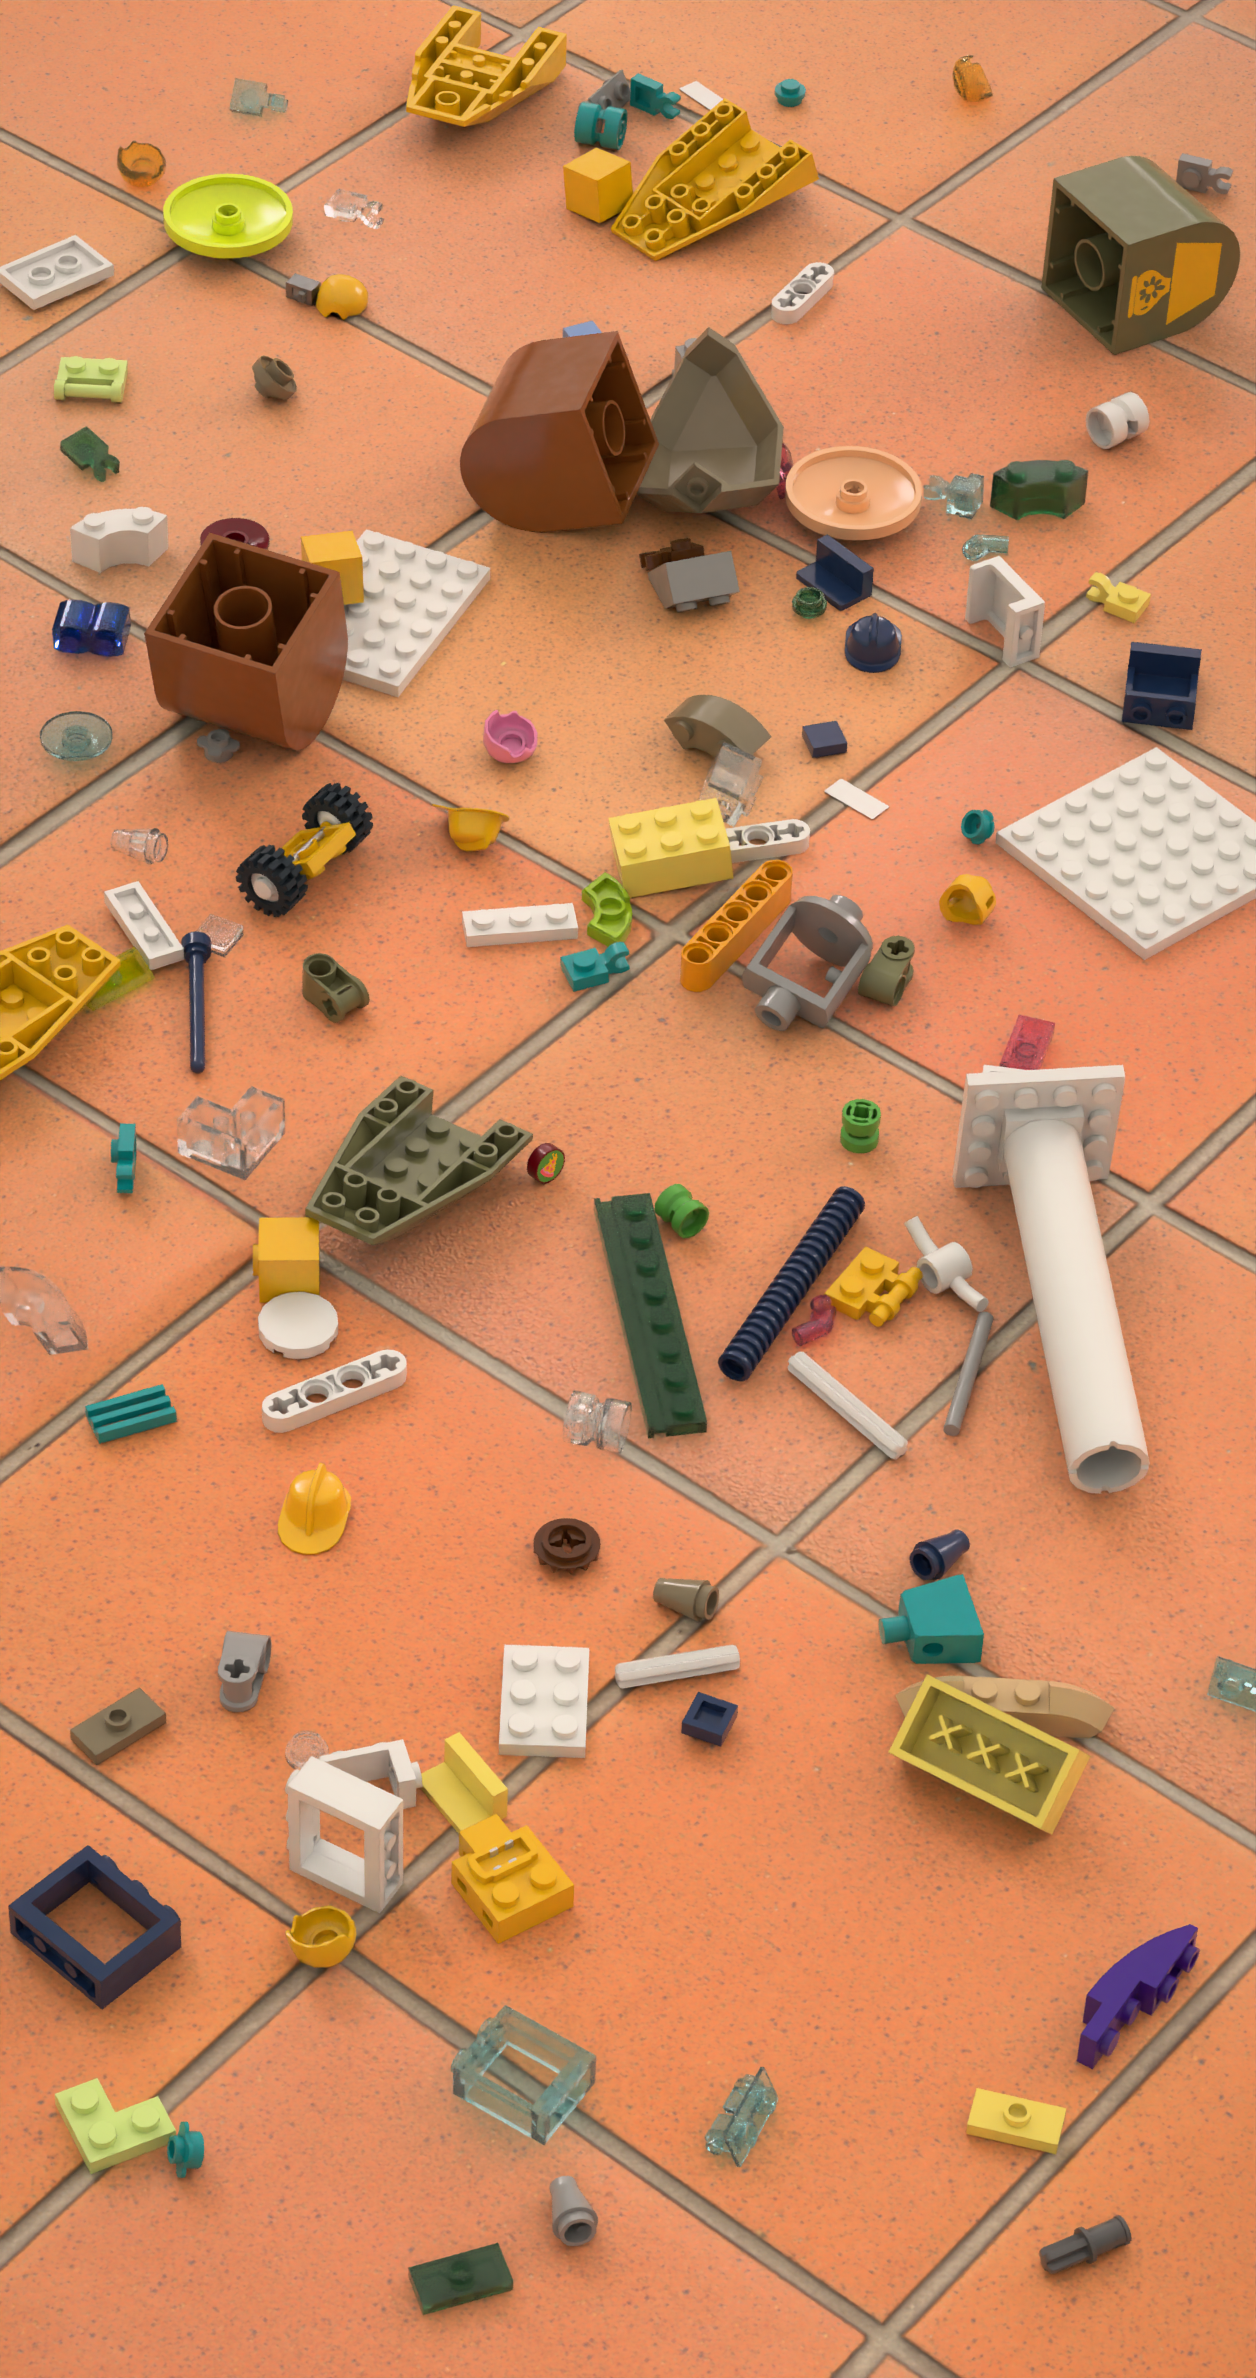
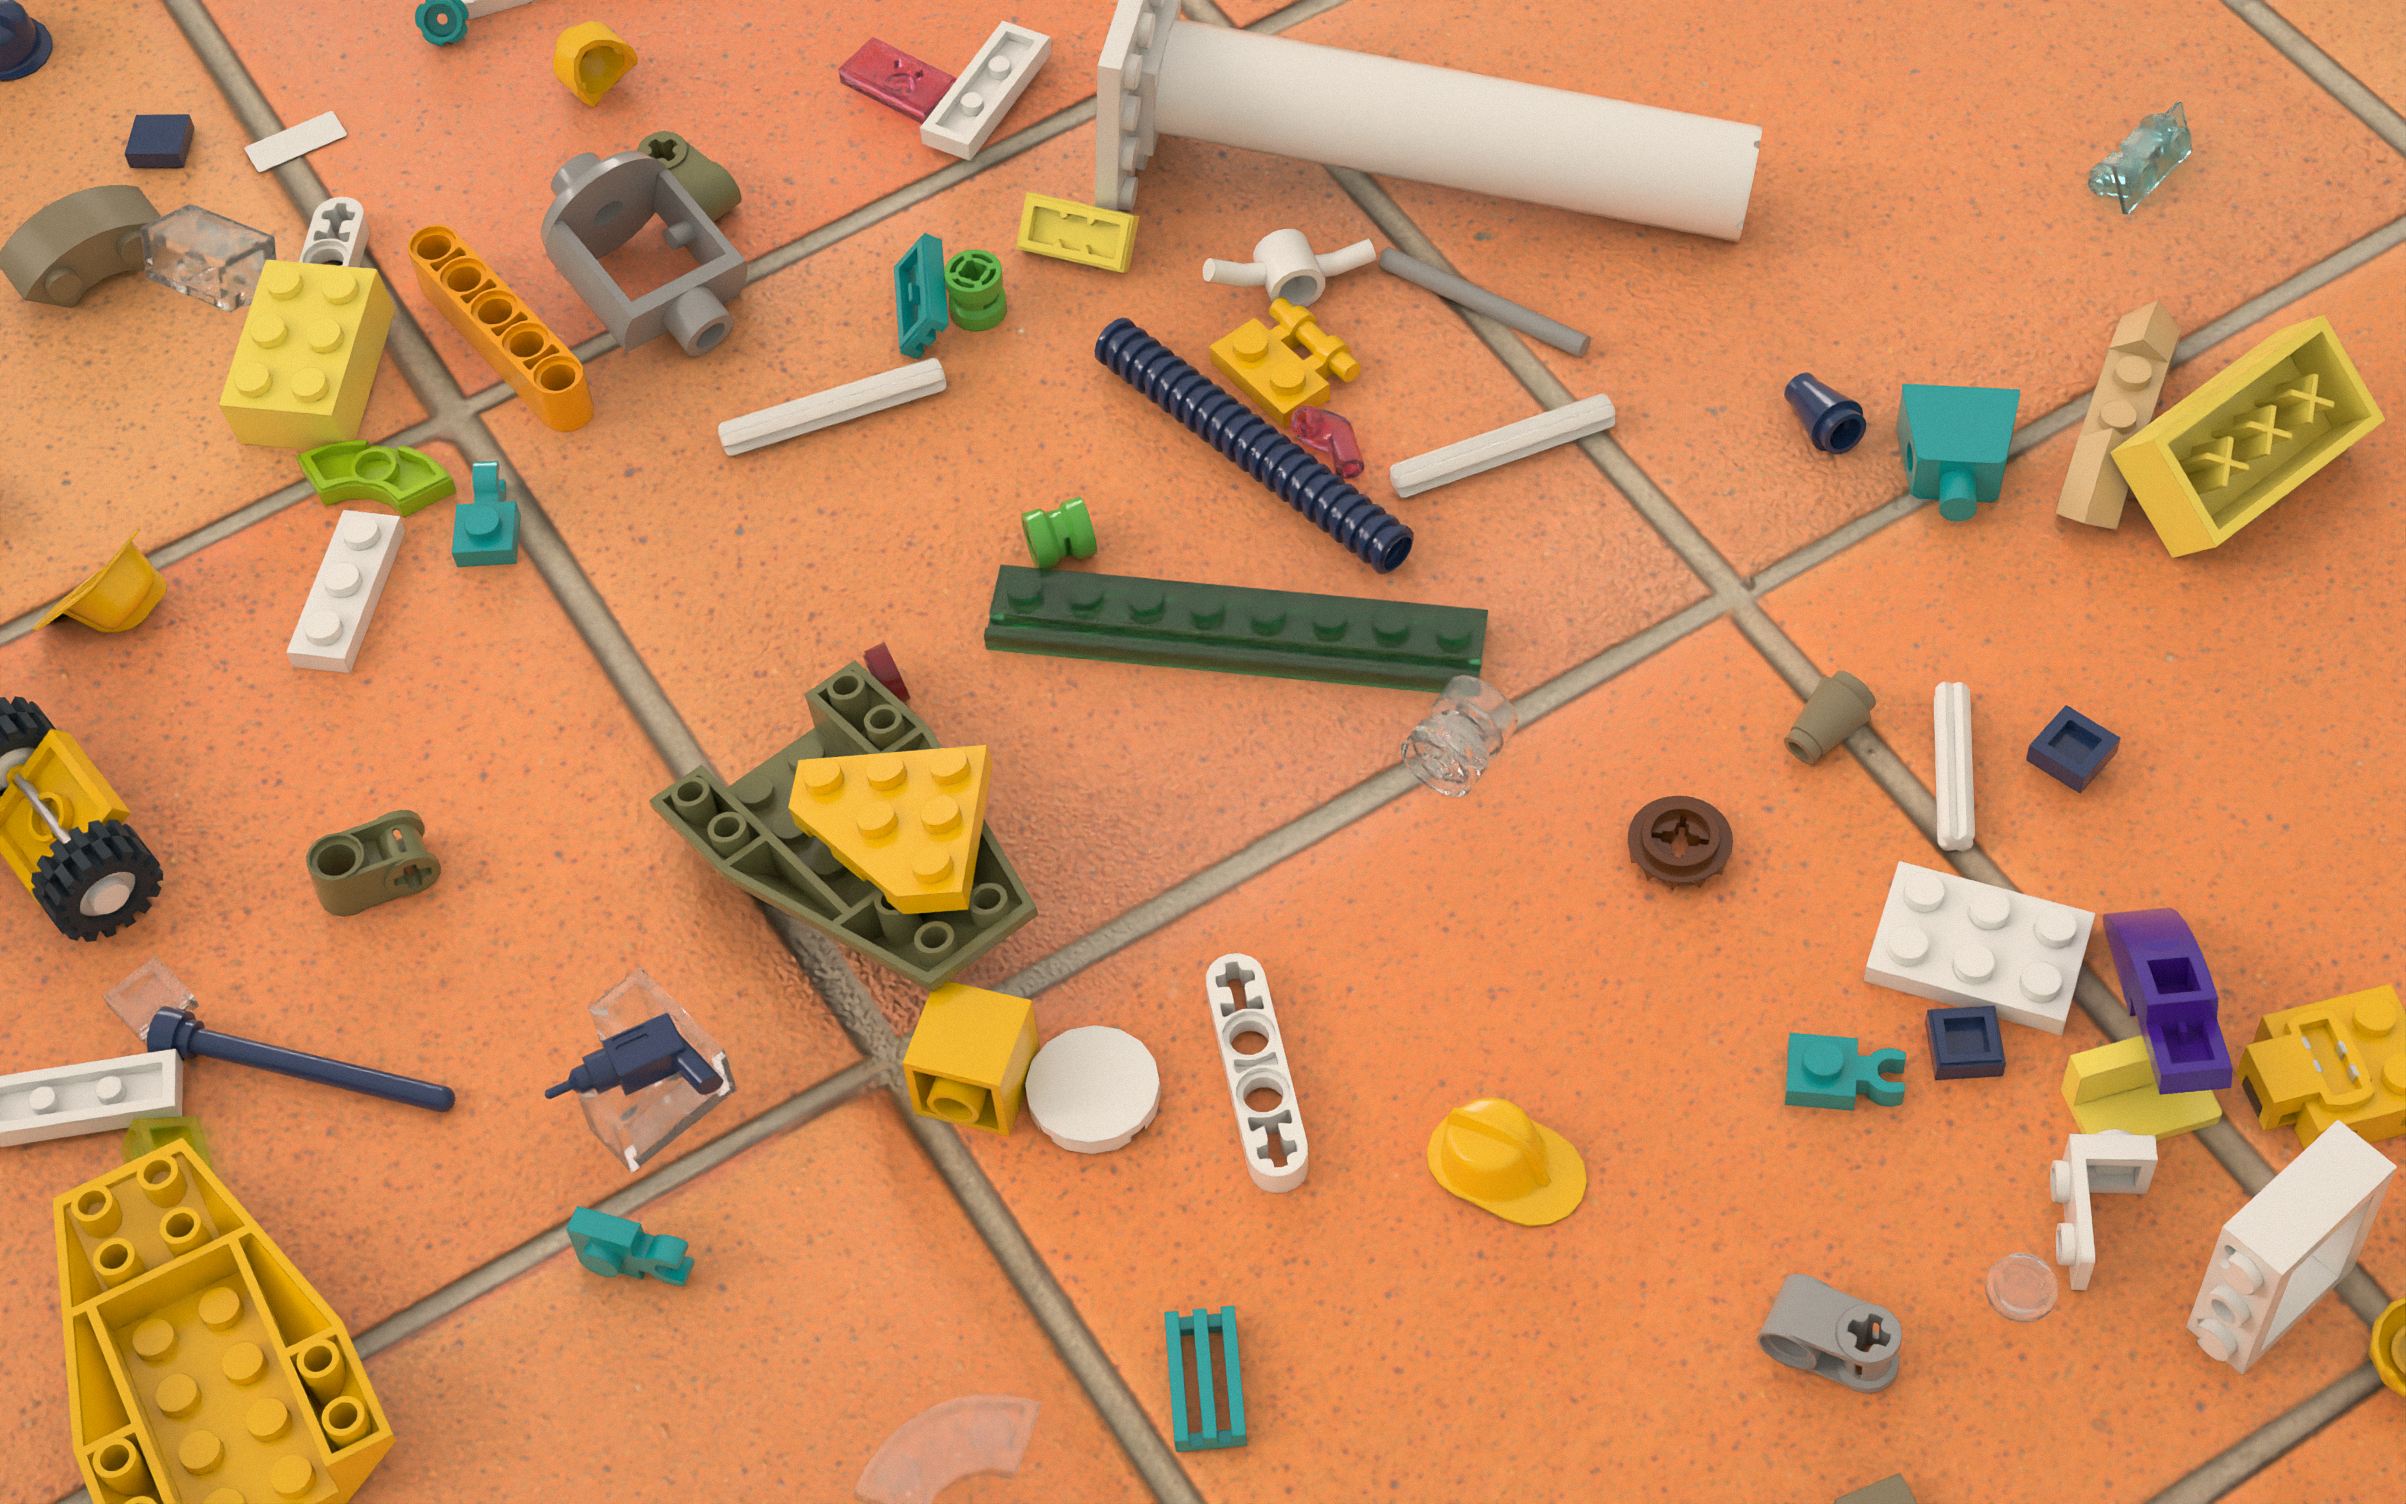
camera: 65 degrees left, 10 degrees up
(219, 1110) = (639, 1060): none -> dark blue piece
(409, 1167) = (900, 820): none -> yellow plate
(428, 1647) = (1830, 1073): none -> teal plate
(472, 1705) = (1965, 1043): none -> dark blue tile
(517, 1758) = (2172, 998): none -> dark purple slope
(744, 1090) = (832, 407): none -> white axle
(836, 1103) = (920, 295): none -> teal tile
(931, 1161) = (1077, 232): none -> light yellow plate

